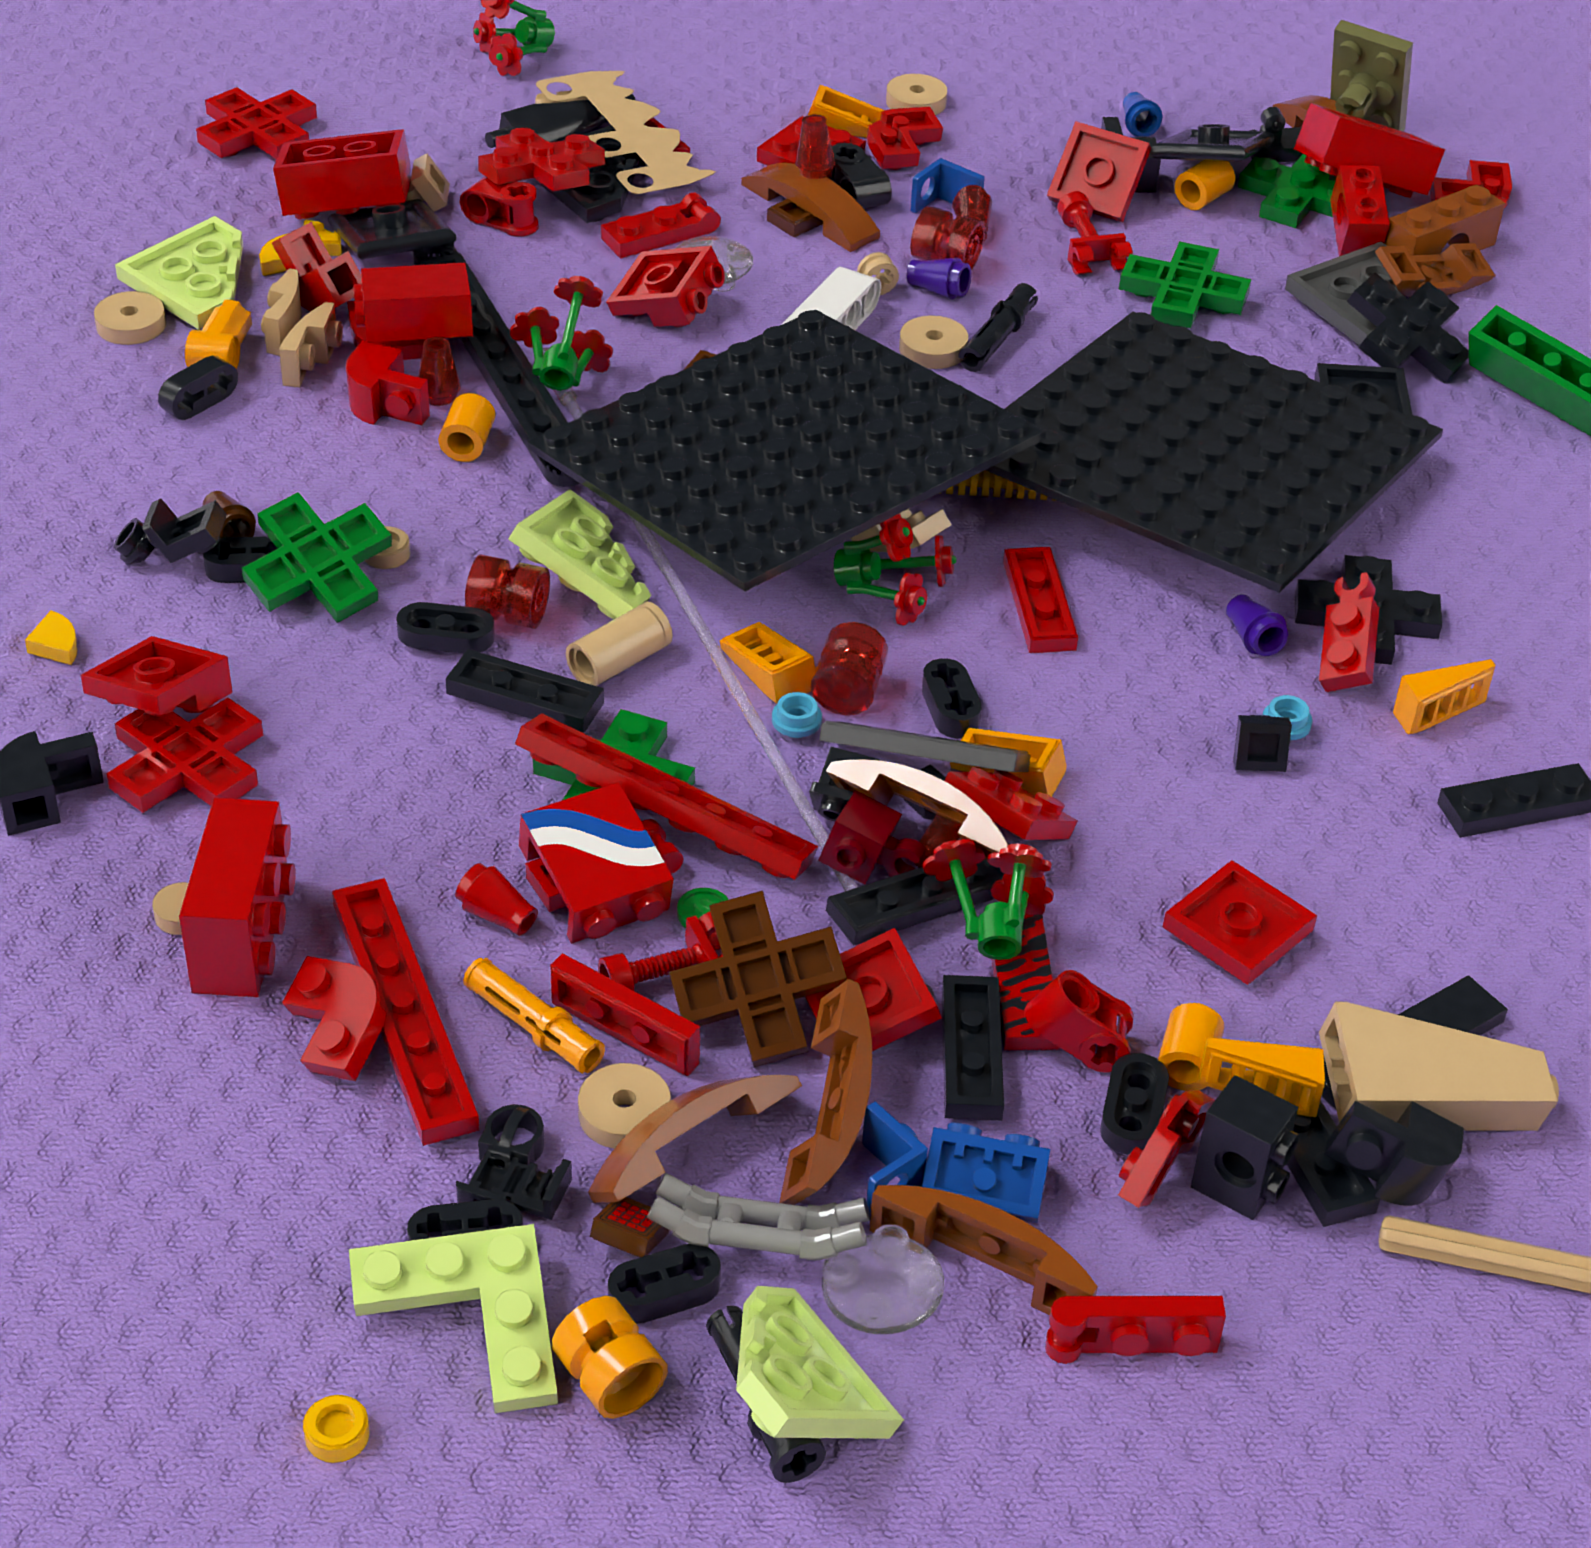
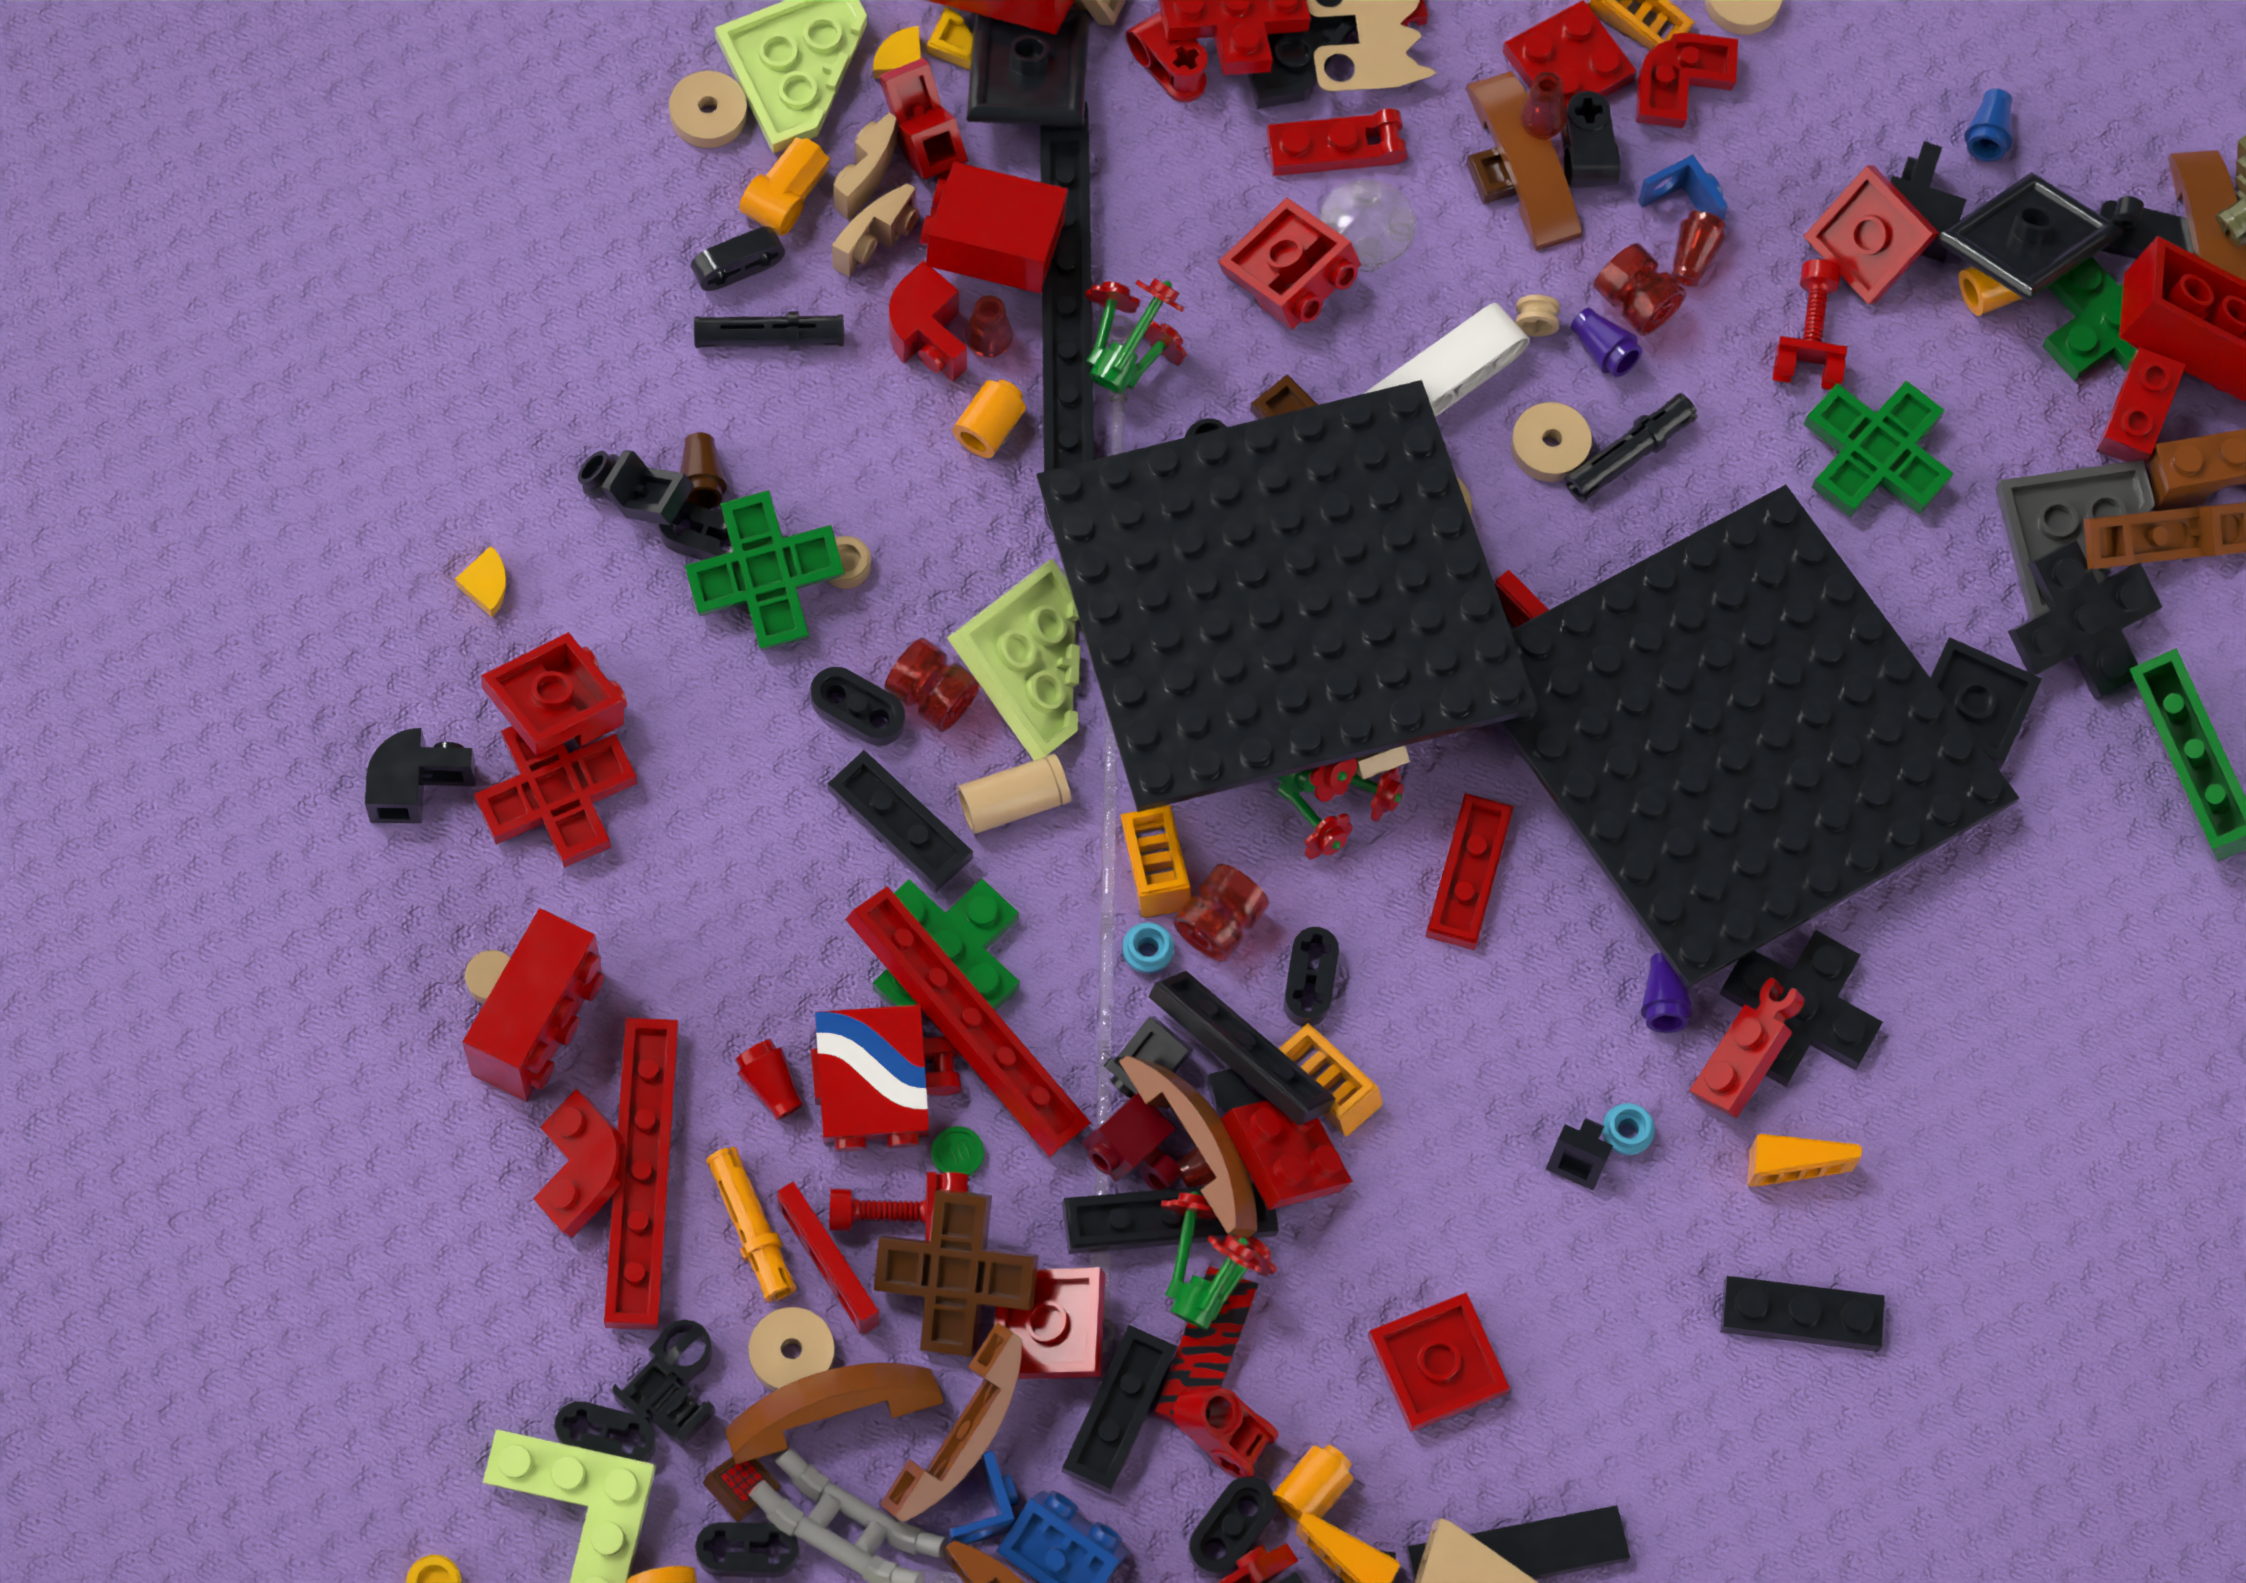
camera: 20 degrees right, 25 degrees up
(237, 426) = (769, 331): none -> black pin

